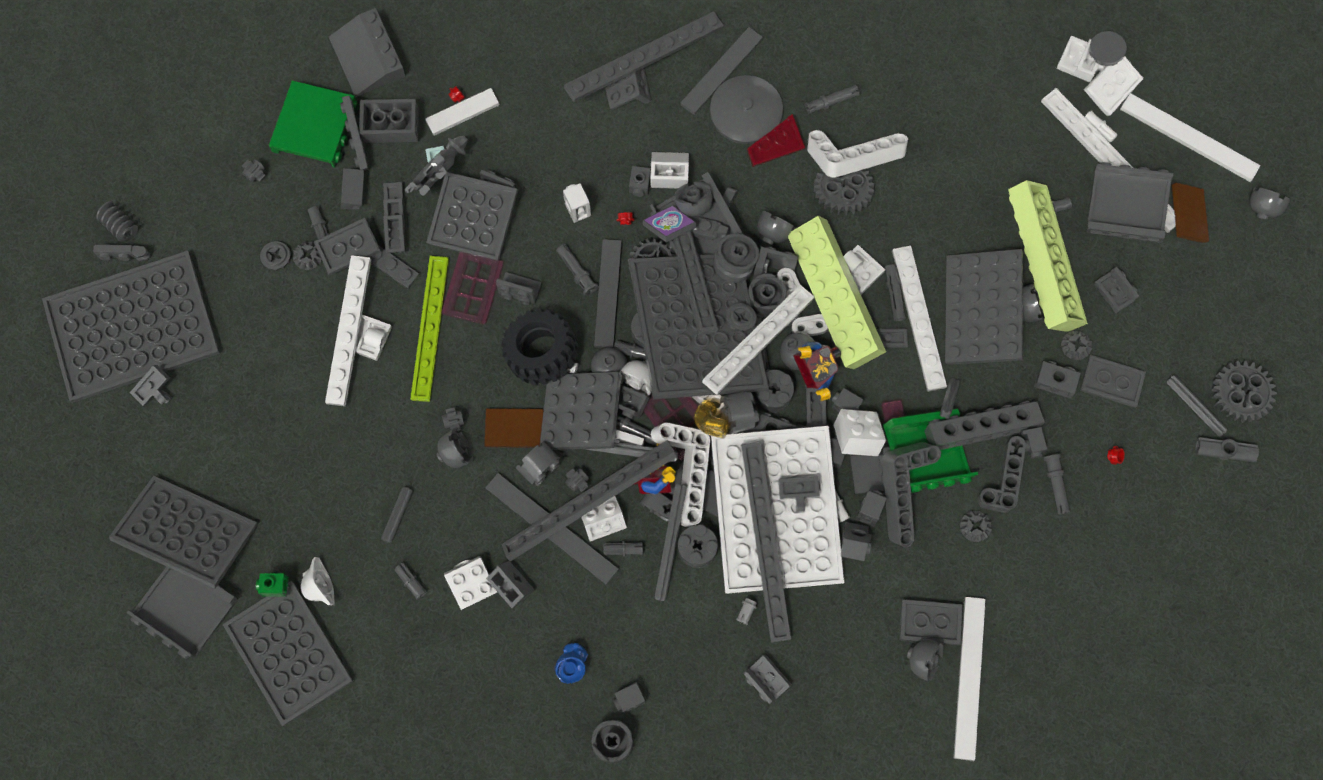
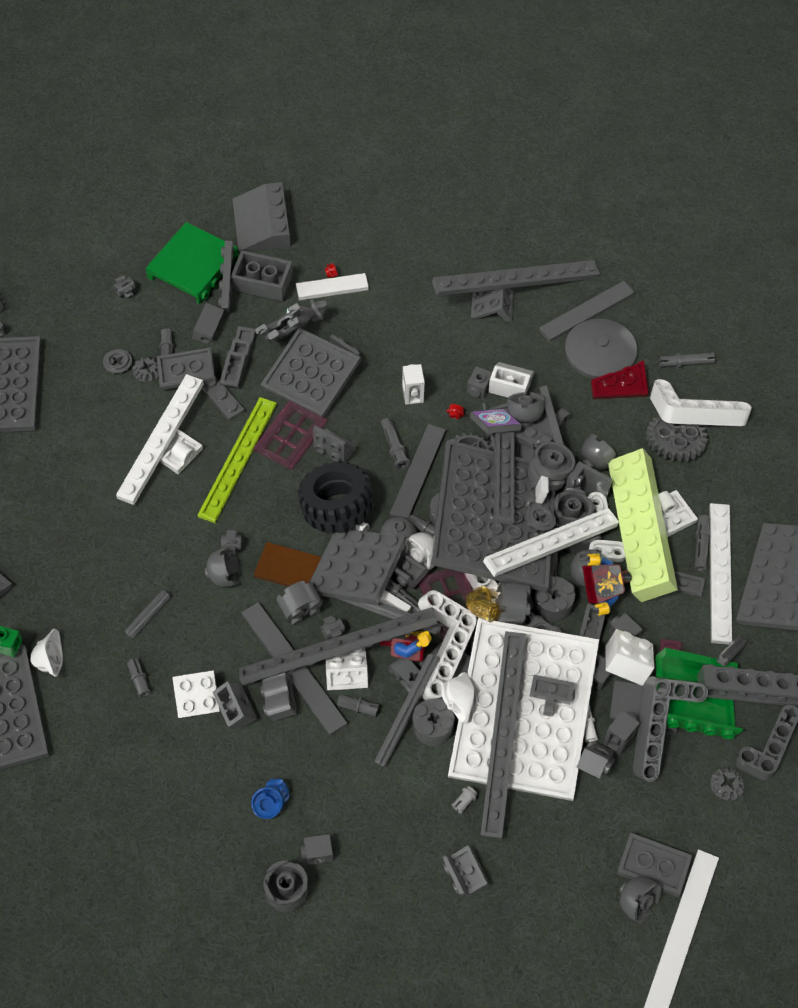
camera: 15 degrees right, 15 degrees down
(548, 563) = (278, 696): none -> dark grey brick
(715, 517) = (459, 696): none -> white hat
(734, 286) = (542, 489): none -> white tile

